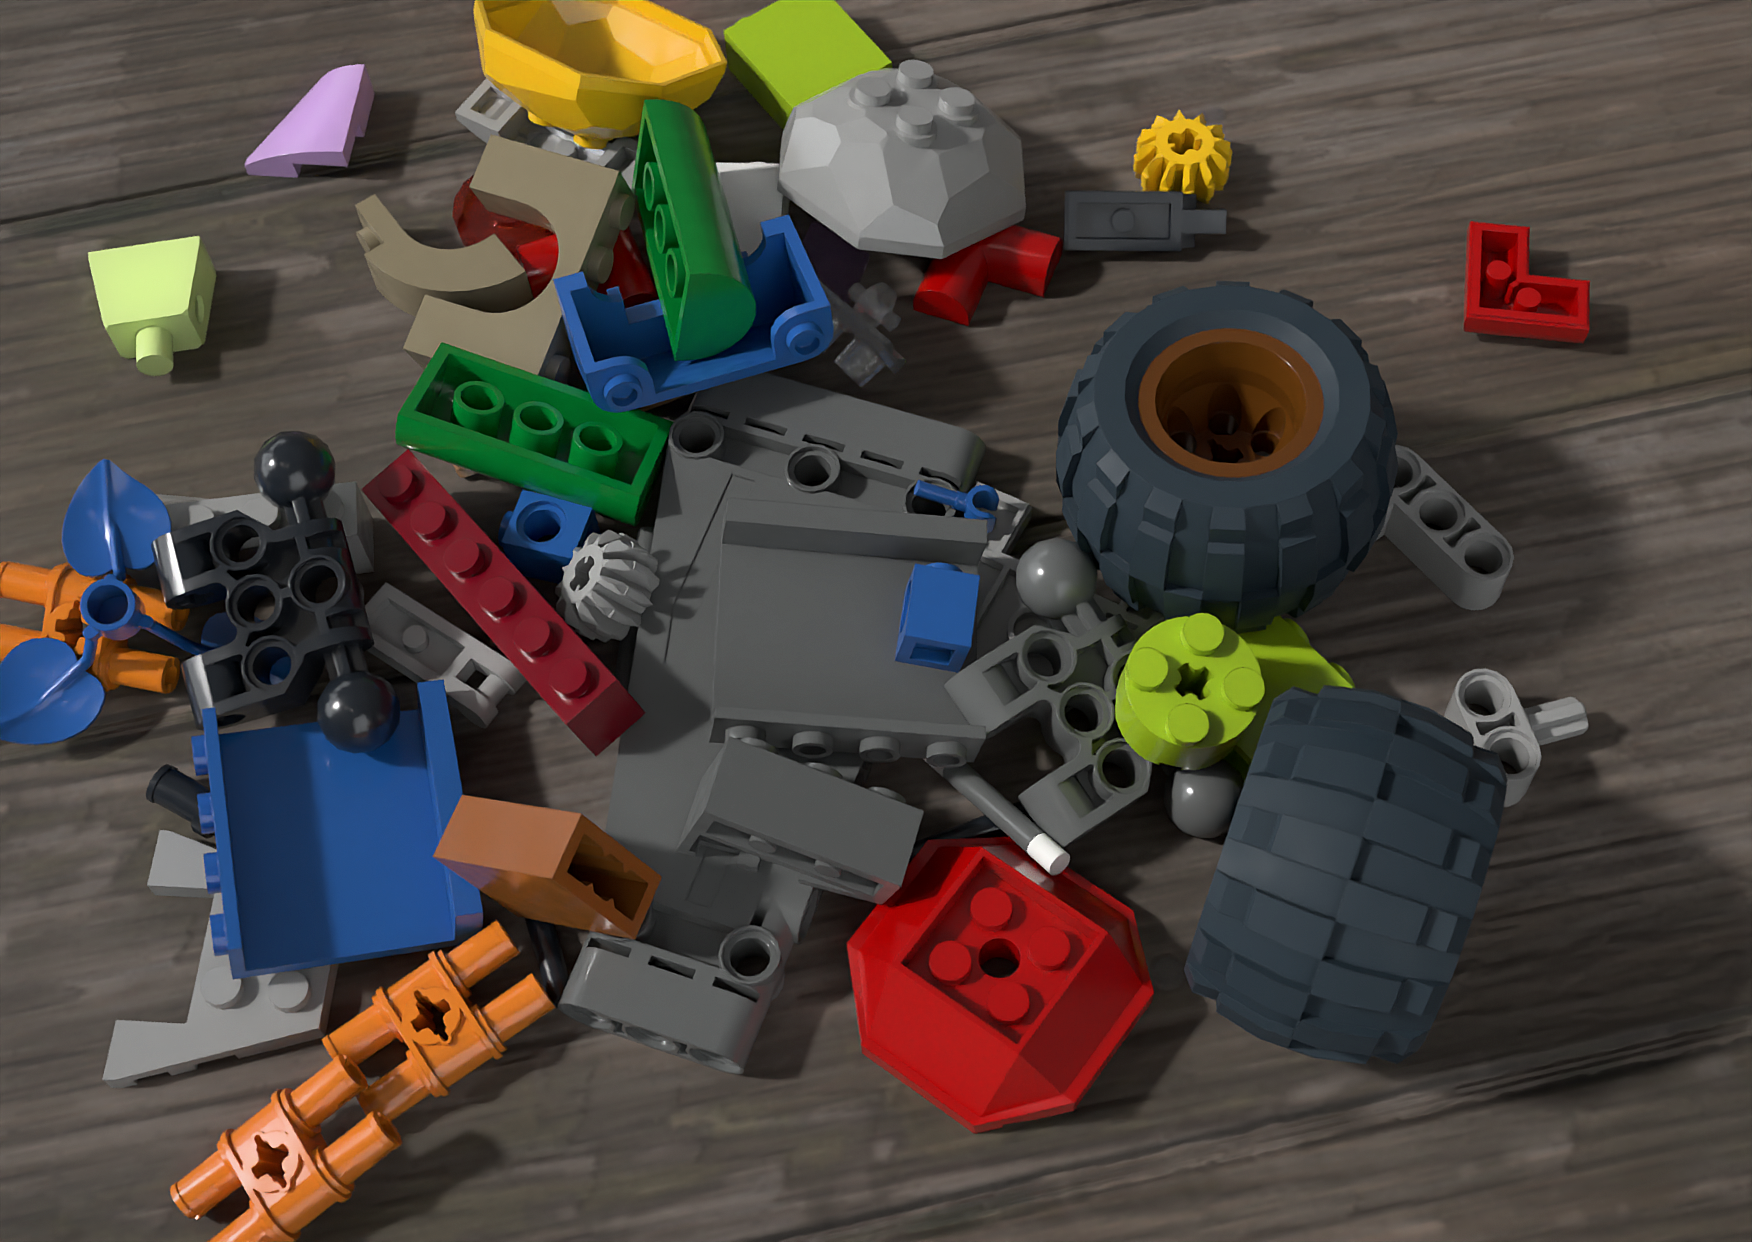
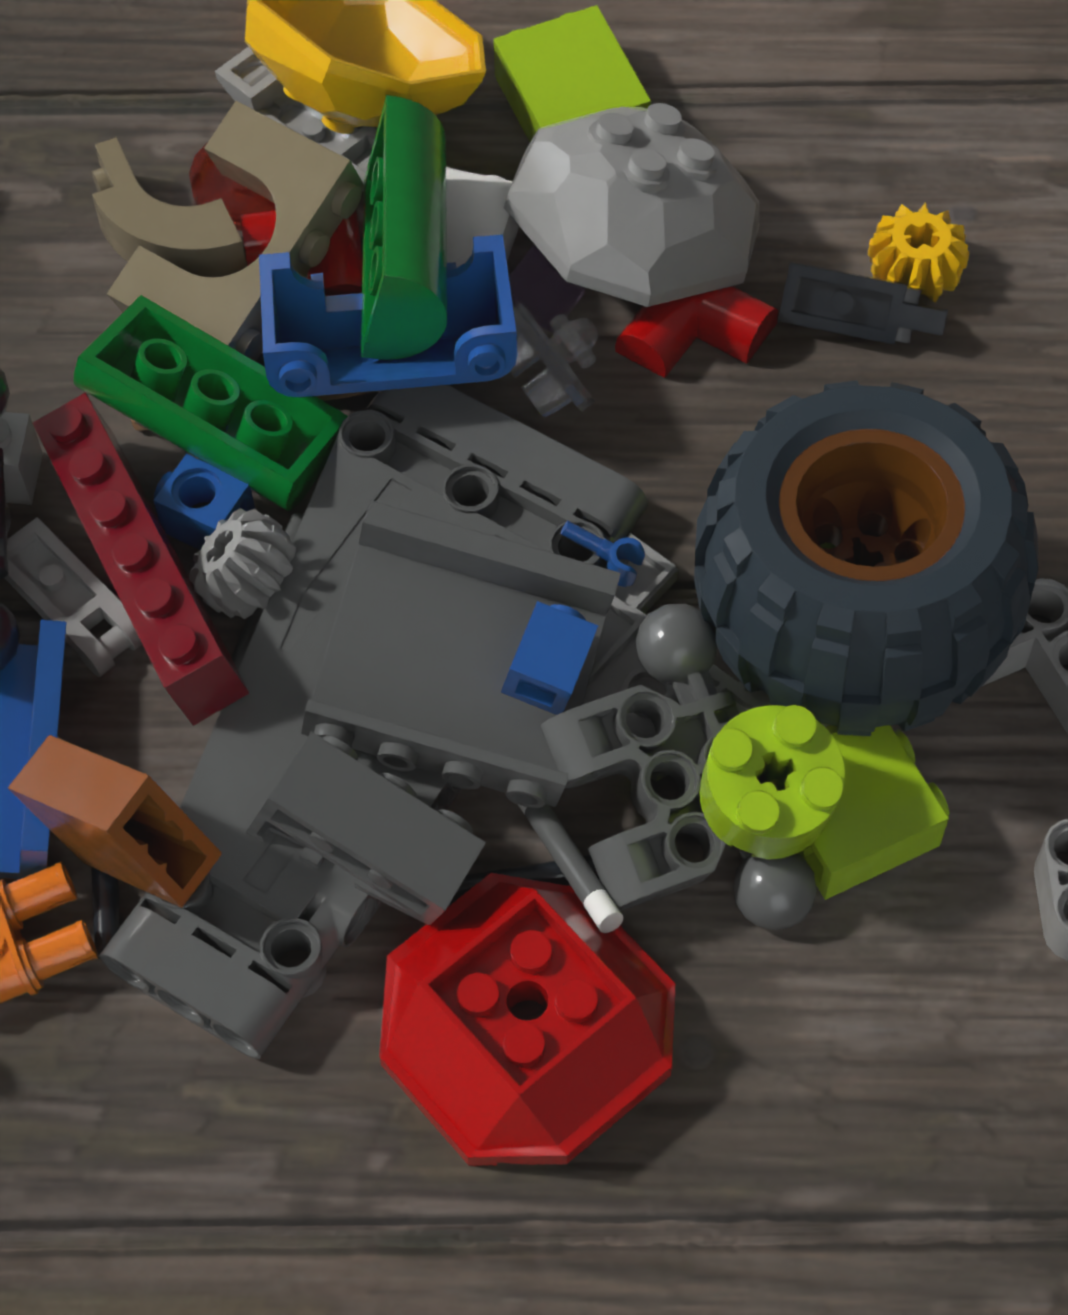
camera: 10 degrees right, 0 degrees up
(319, 126) = (83, 60): lavender slope -> none
(1348, 875) = (870, 986): black wheel -> none

